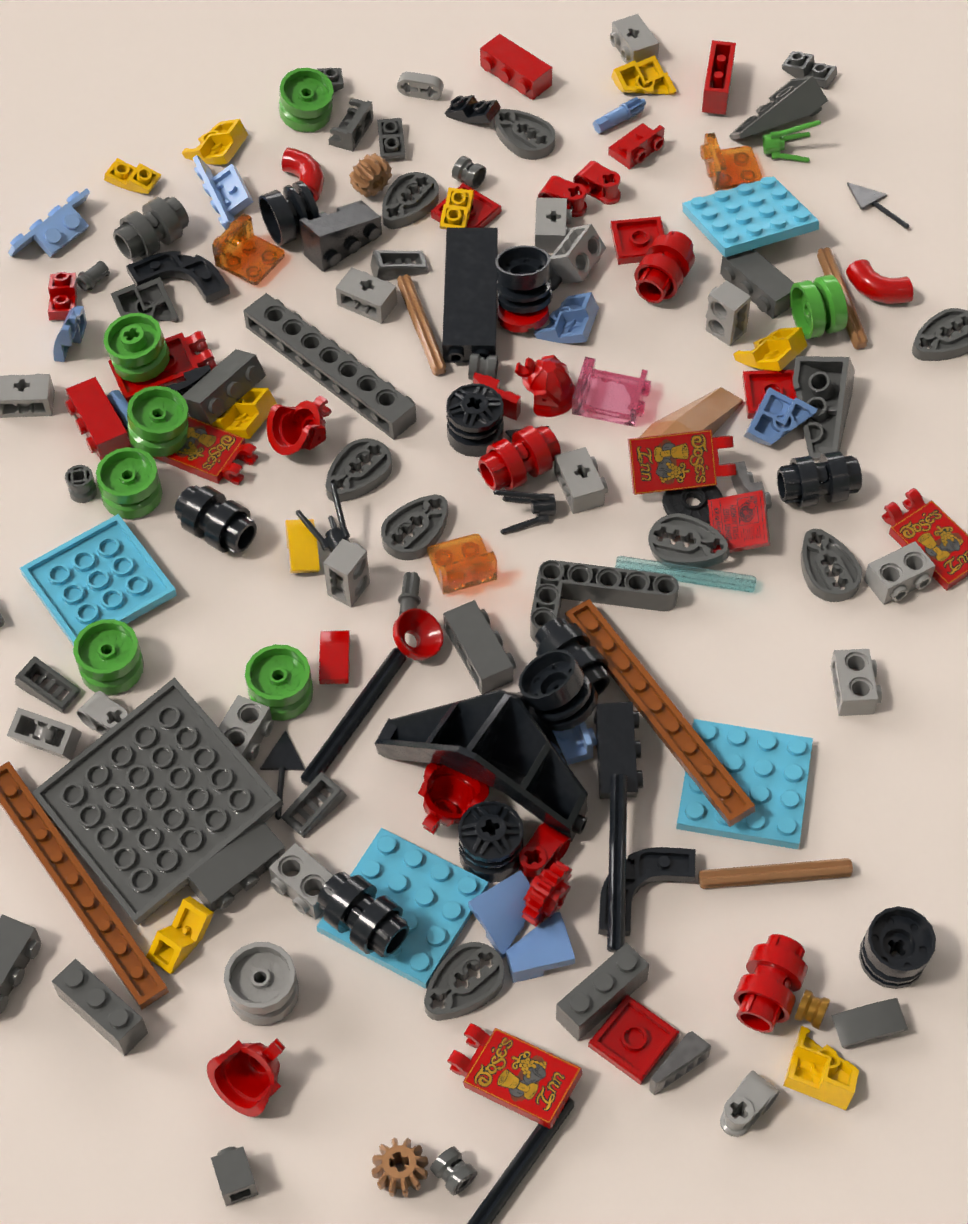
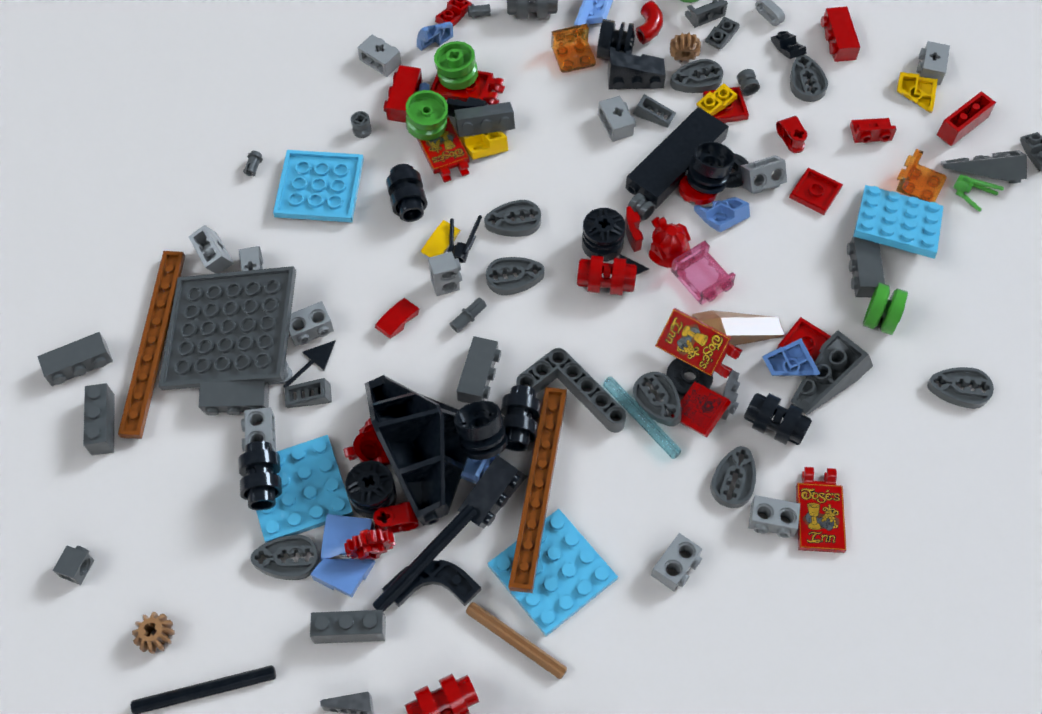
camera: 40 degrees right, 5 degrees up
(34, 666) = (238, 211): dark grey slope -> none
(108, 656) = (281, 231): bright green wheel -> none
(129, 483) = (382, 140): bright green wheel -> none
(146, 299) = (492, 43): dark grey slope -> none
(174, 264) = (530, 34): black plate -> none
(178, 940) = (171, 414): yellow slope -> none
(246, 1075) = (130, 515): red helmet -> none
(261, 983) = (181, 471): light grey wheel -> none
(281, 680) = (351, 310): bright green wheel -> none
(297, 427) = (501, 170): red helmet -> none
(330, 366) = (555, 147): dark grey brick -> none
(354, 716) = (377, 359): black axle -> none
(421, 325) = (632, 156): medium nougat axle -> none
(423, 628) = (459, 338): red piece -> none
(453, 1170) = (176, 659): dark grey wheel -> none
(462, 563) = (517, 314): clear orange bracket -> none
(516, 1074) = (259, 635): red tile -> none
(541, 504) = (596, 313): black plant -> none
(551, 223) = (767, 144): light grey brick -> none
(580, 480) = (627, 323): light grey brick -> none
(599, 182) = (823, 138): red piece -> none
(619, 114) = (884, 104): medium blue piece -> none
(633, 1039) = (342, 669): red tile -> none
(664, 267) = (815, 216): red piece -> none
(727, 312) = (821, 273): light grey brick -> none
(774, 350) = (834, 317): yellow slope -> none
(854, 325) = (913, 314): medium nougat axle -> none
(866, 197) = (998, 259): piece -> none
(878, 287) = (942, 322): red cylinder -> none

